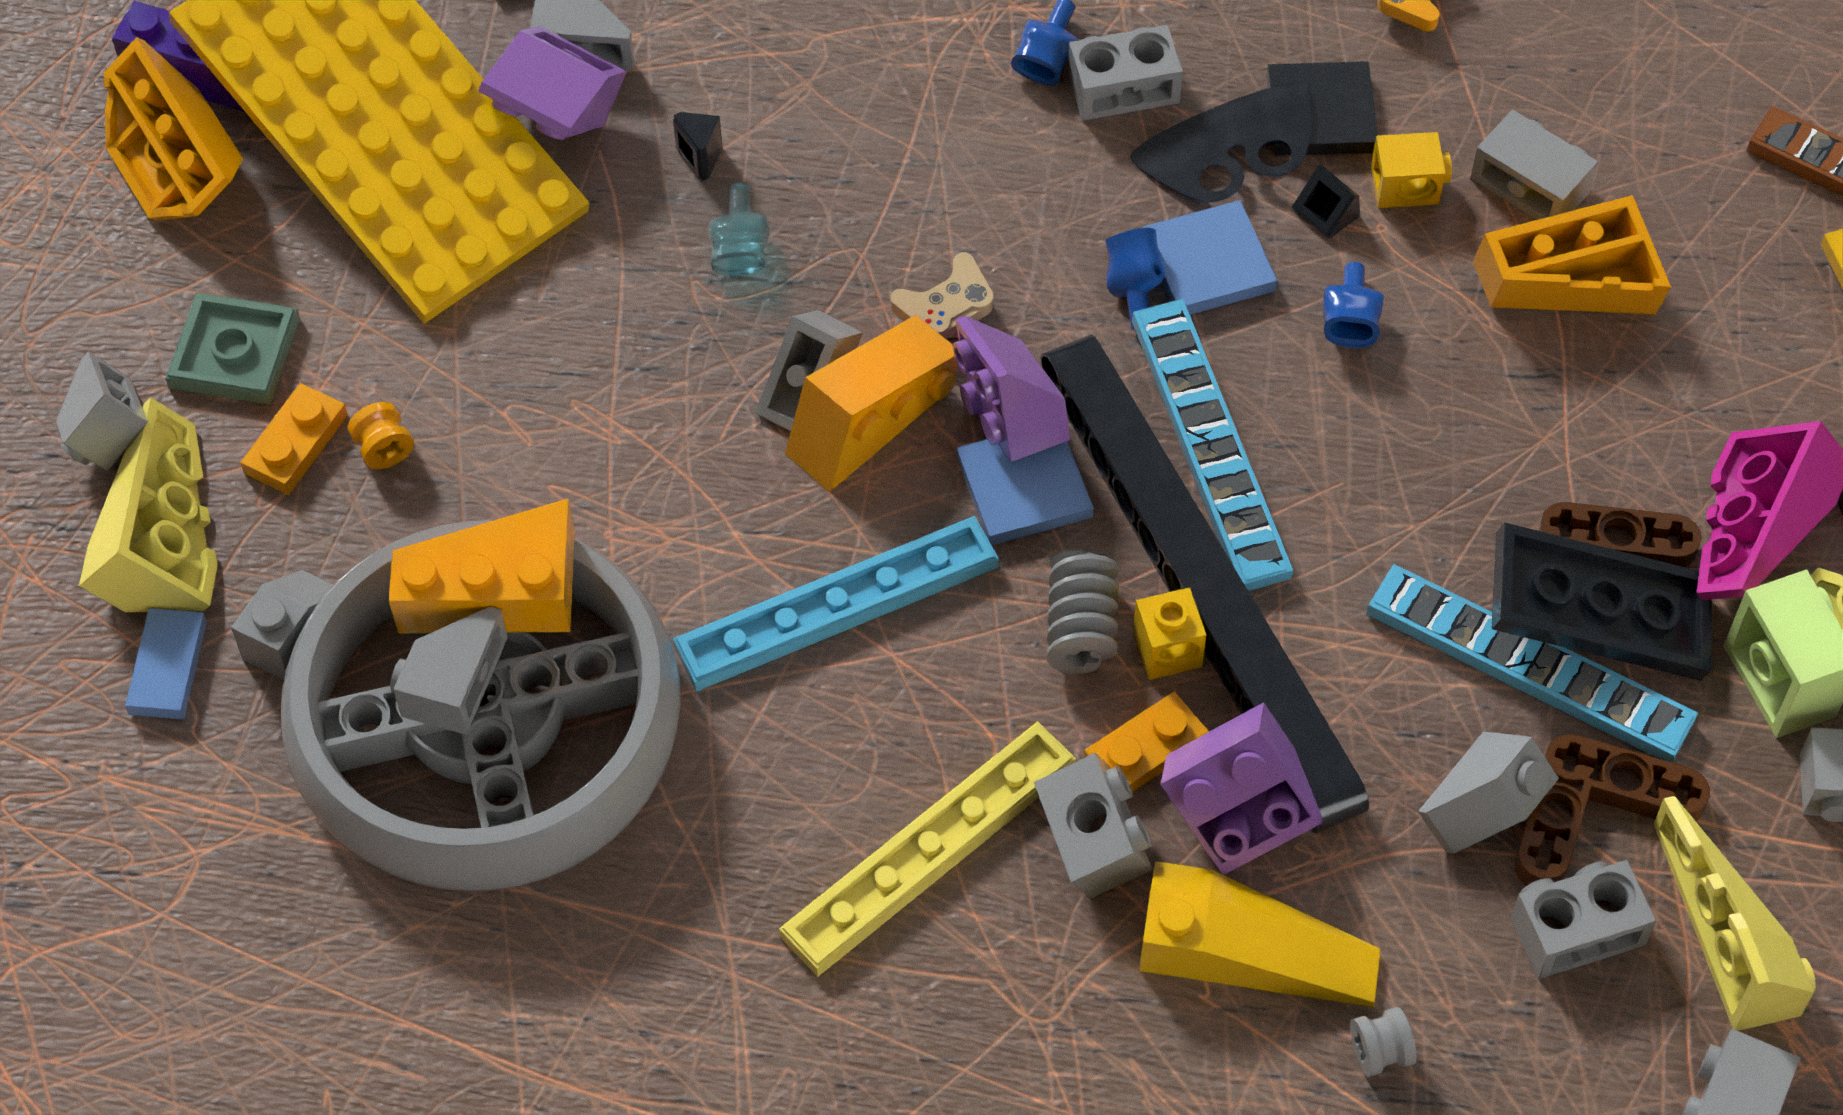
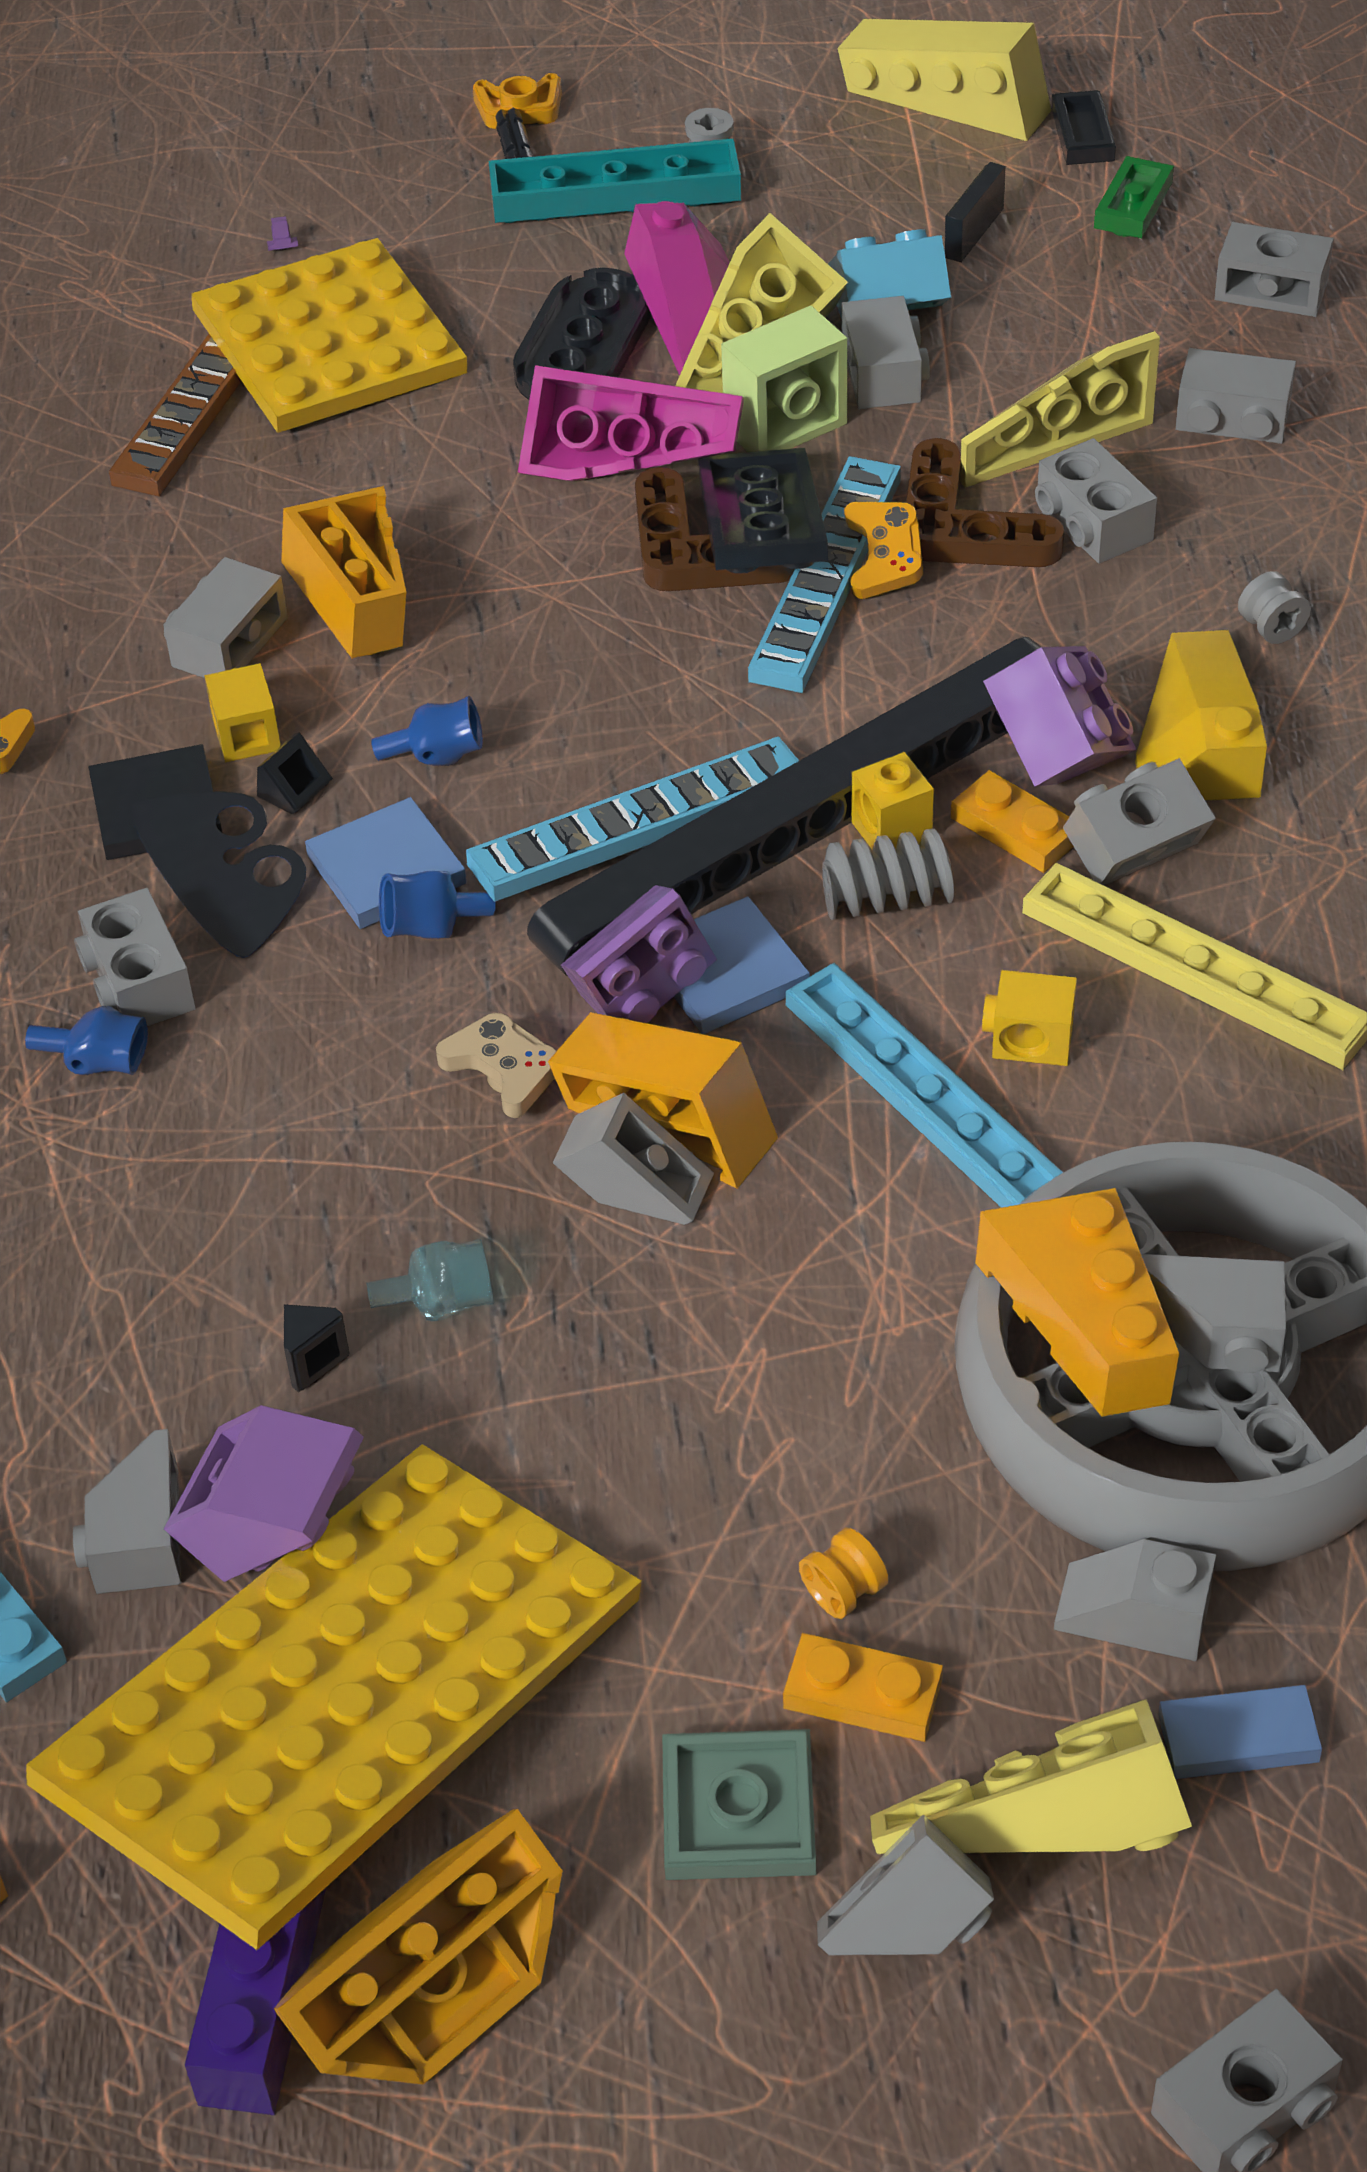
camera: 100 degrees left, 10 degrees down
(885, 688) = (1031, 1017): none -> yellow brick
(1488, 790) = (987, 557): light grey slope -> none
(1542, 713) = (892, 546): none -> light orange piece

